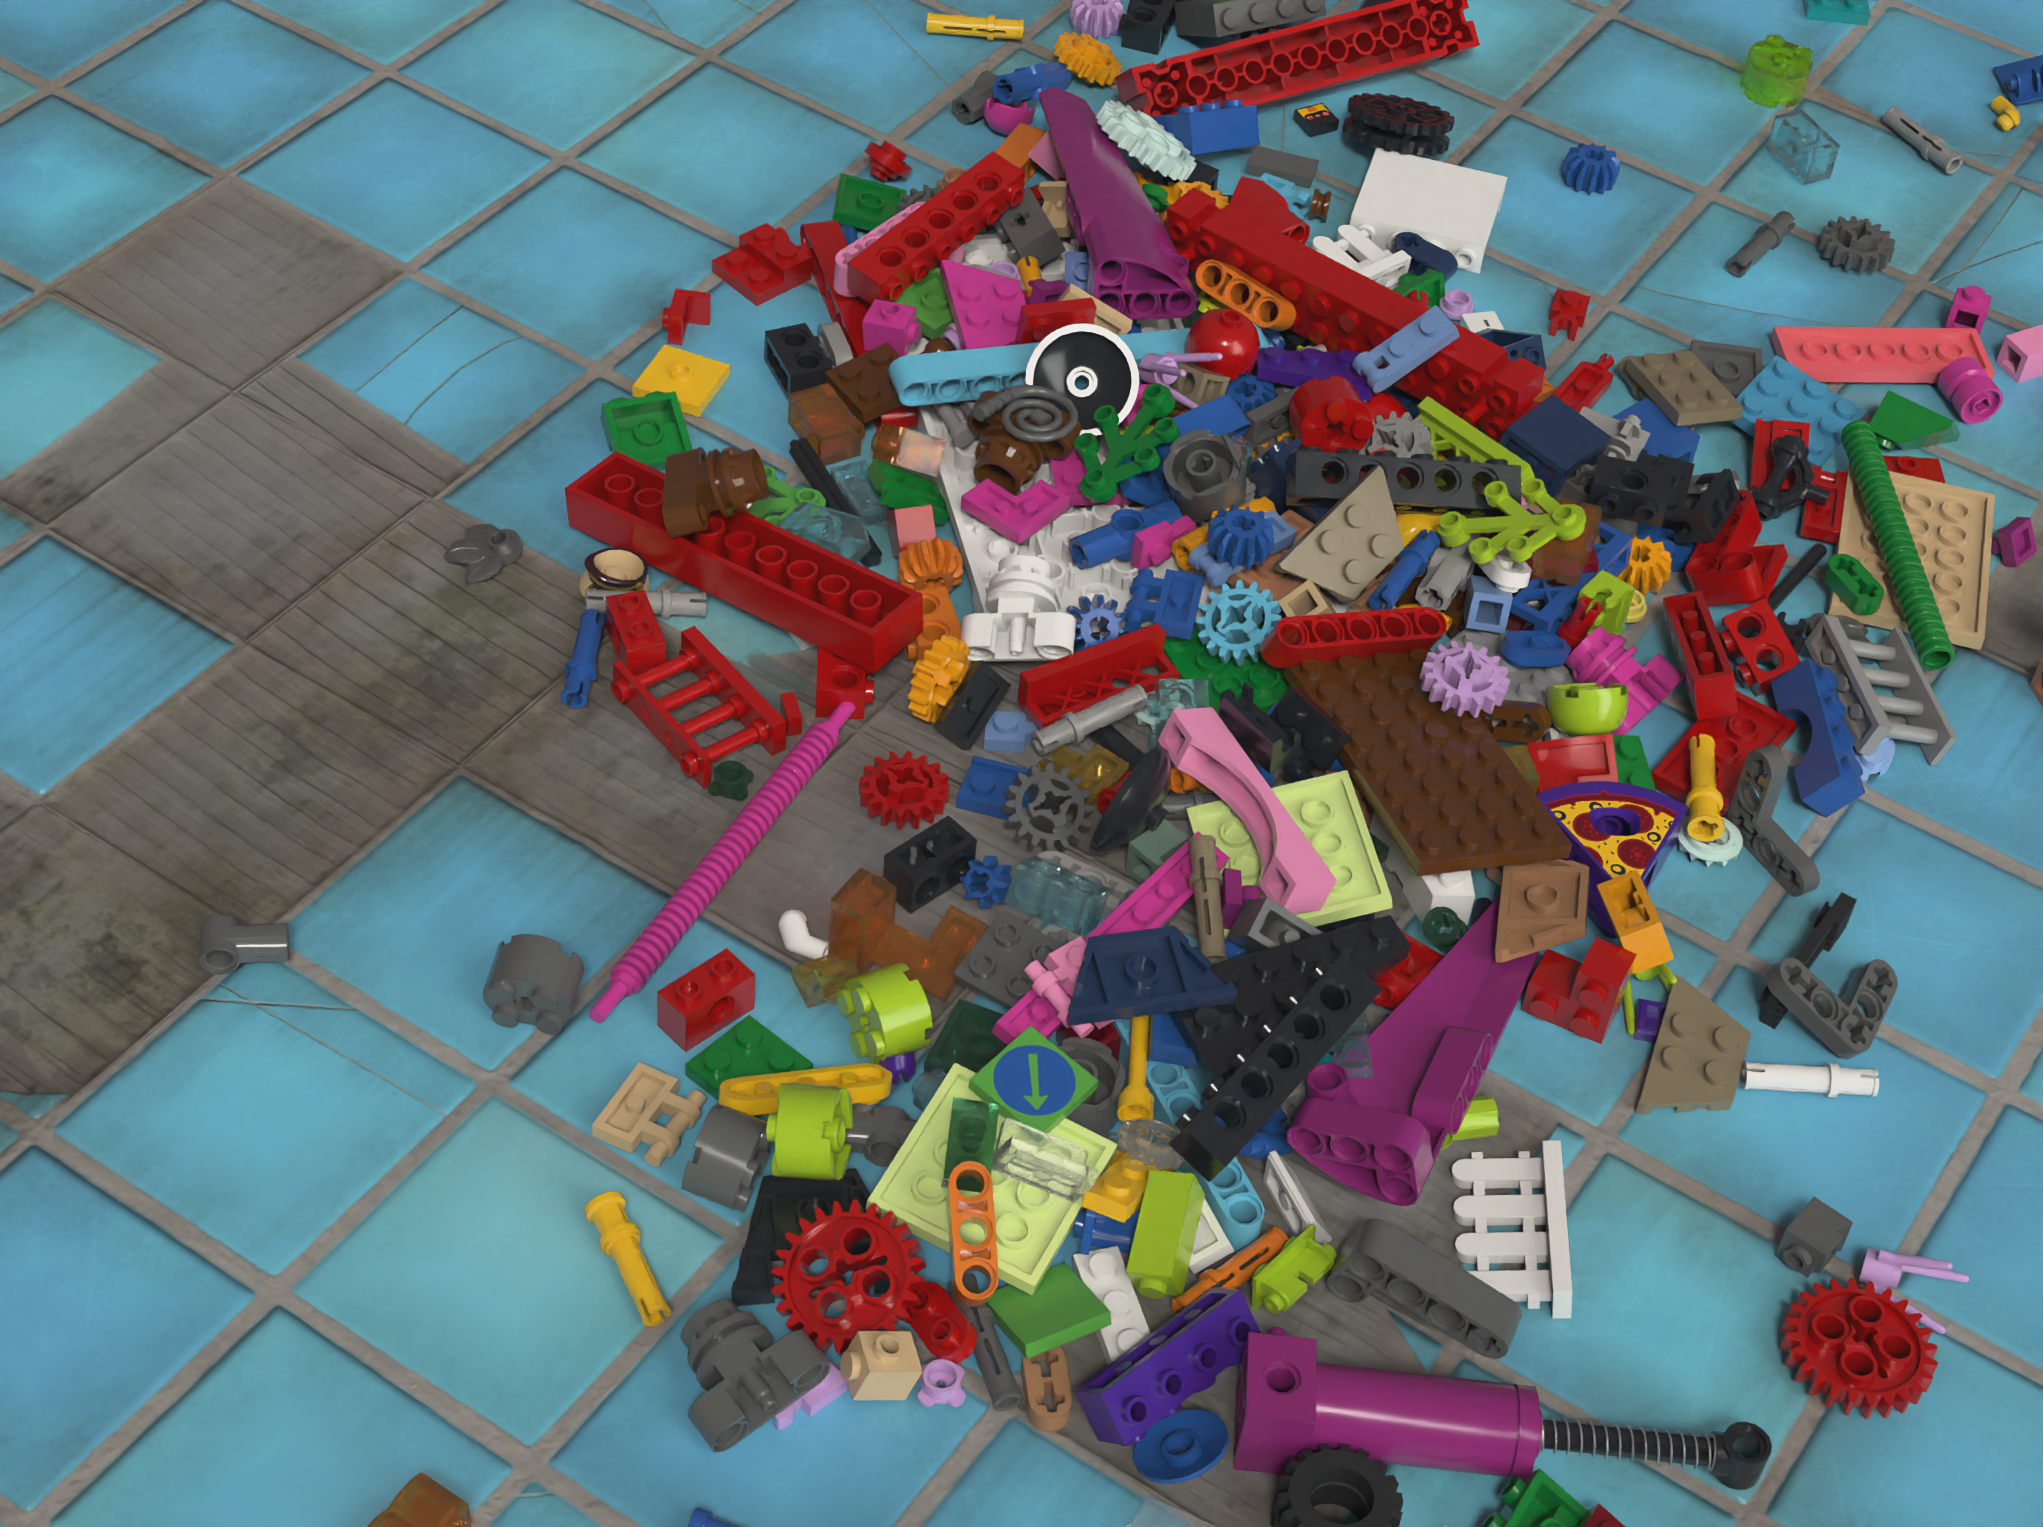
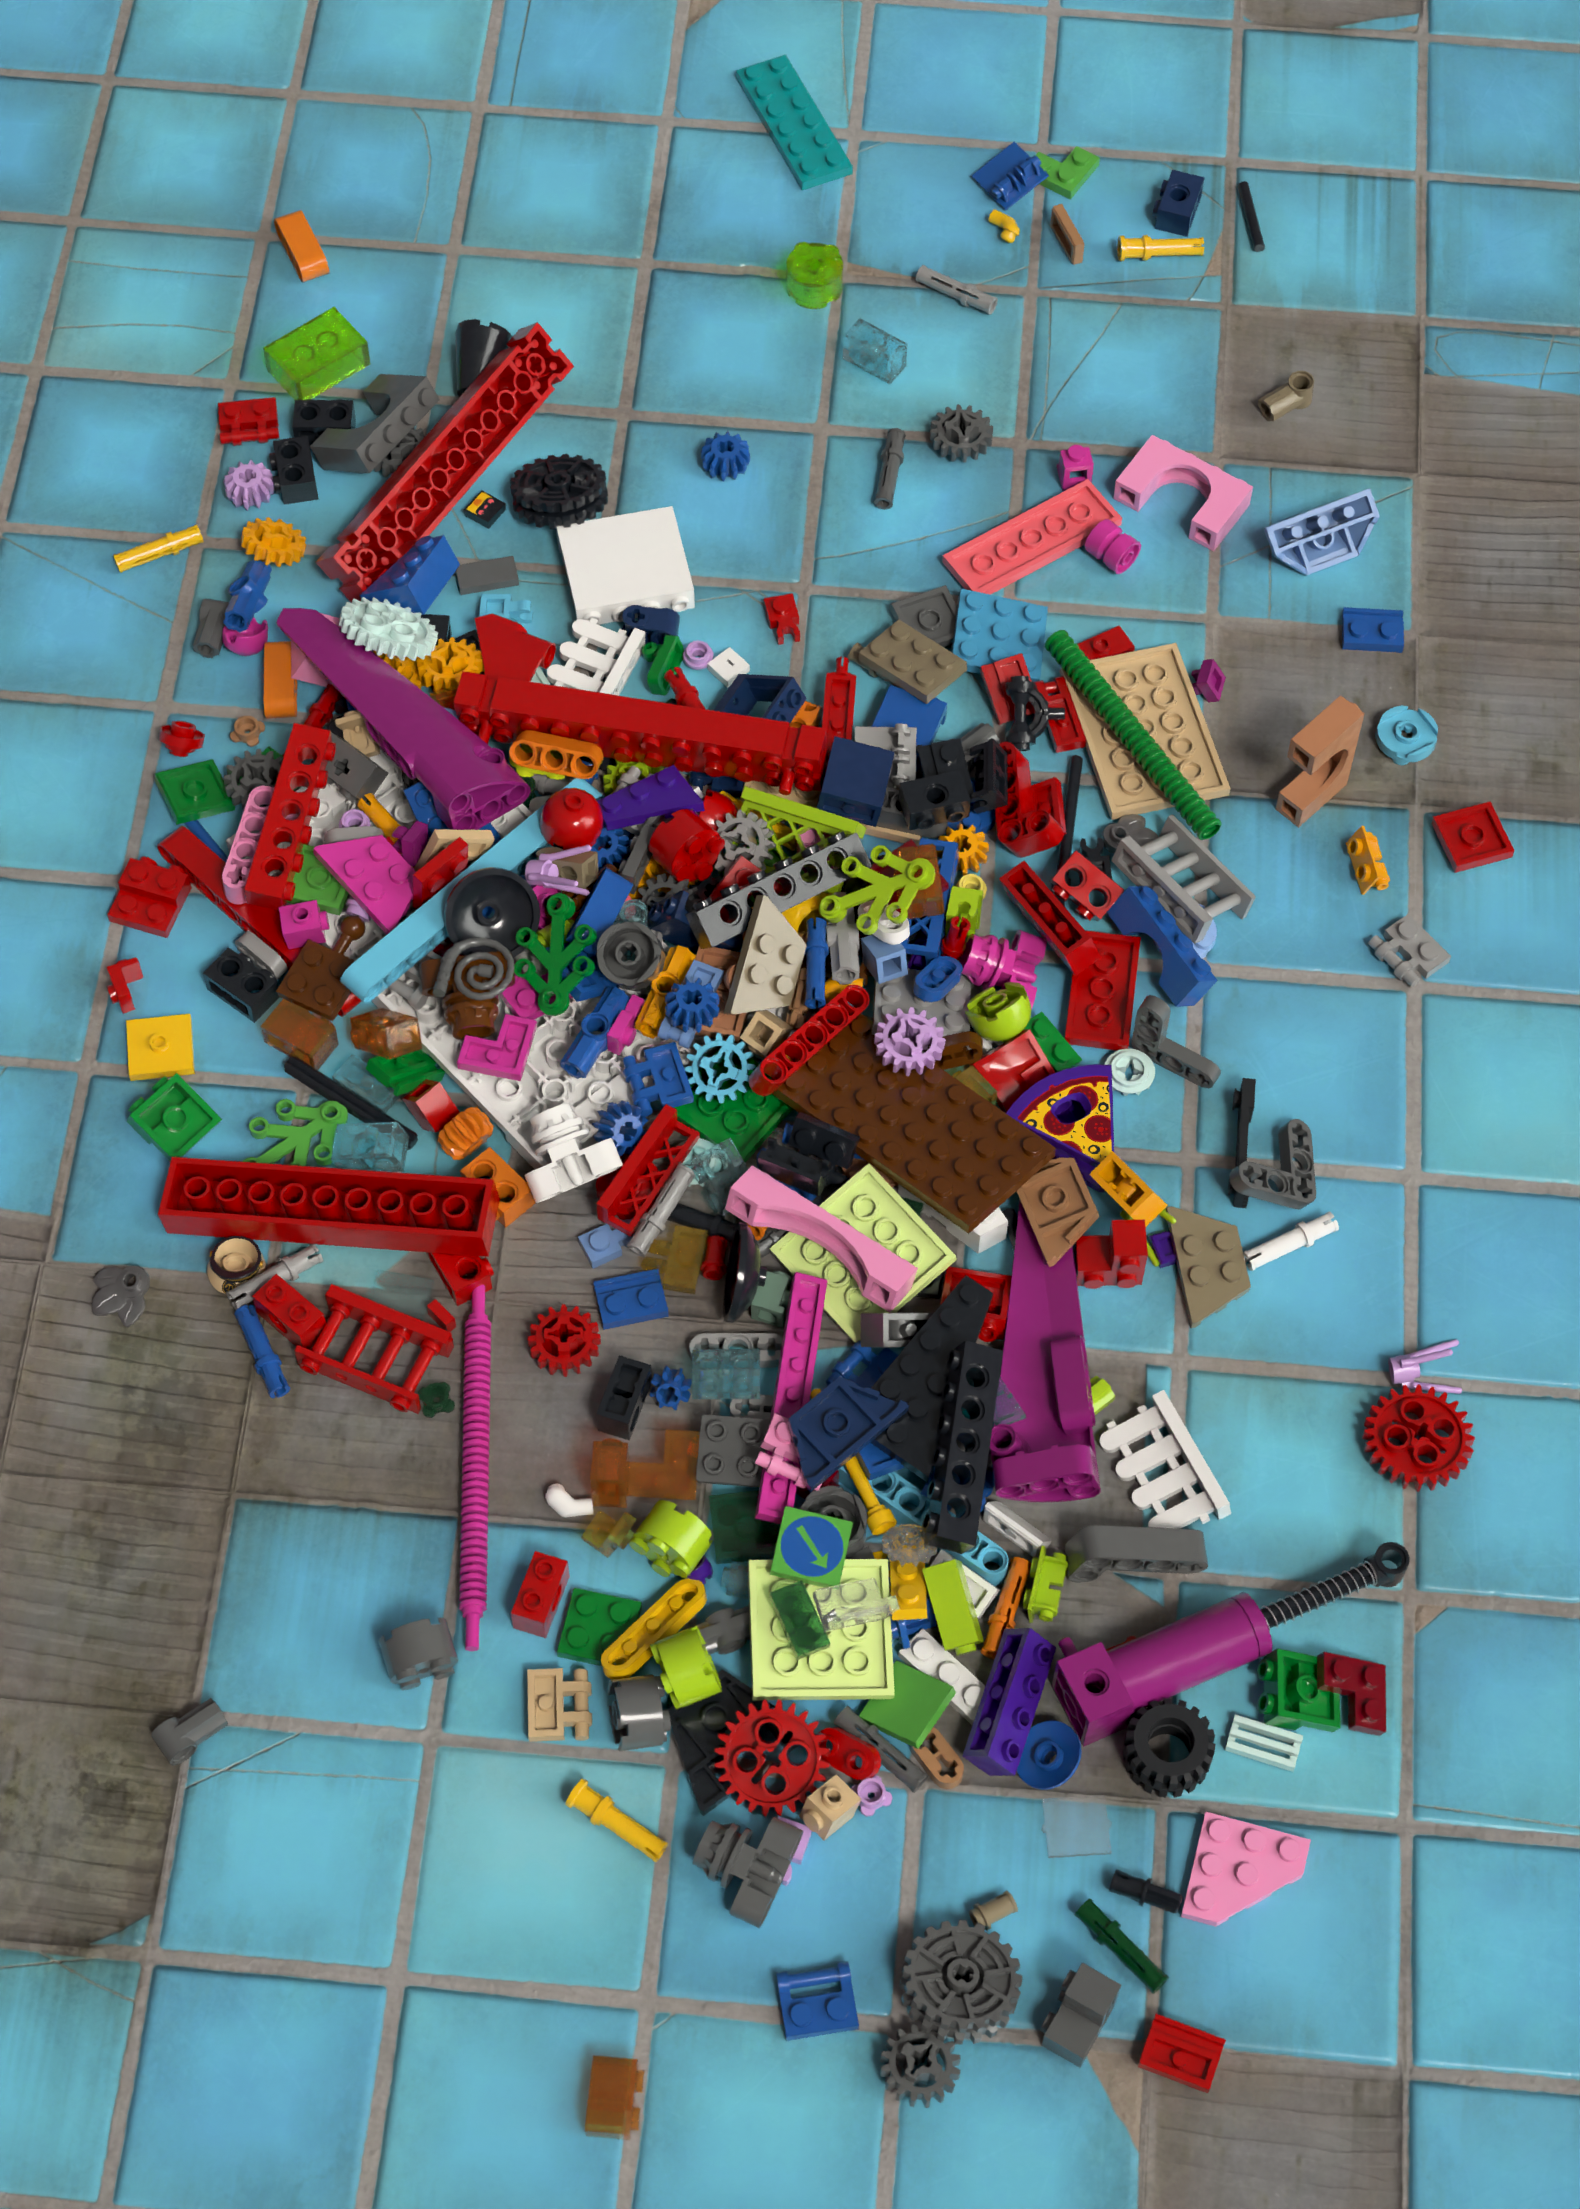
camera: 25 degrees left, 15 degrees up
(708, 483) = (273, 1169): reddish brown beam -> none
(938, 677) = (536, 1234): light orange gear -> none
(972, 705) = (570, 1242): black plate -> none
(978, 1211) = (855, 1696): orange beam -> none
(1054, 792) = (666, 1297): dark grey gear -> none
(1157, 196) = (425, 682): green plate -> none
(1206, 882) = (814, 1293): dark tan pin -> none
(1234, 895) = (848, 1314): magenta tile -> none
(1320, 205) = (541, 604): reddish brown bush -> none
(1406, 349) = (714, 758): medium blue plate -> none
(1447, 918) = (990, 1260): clear green bush -> none
(1704, 799) = (1114, 1047): yellow pin -> none
(1813, 1238) = (1352, 1370): dark grey window -> none
(1853, 584) = (1120, 788): green beam -> none
(1910, 425) = (1086, 605): green slope -> none

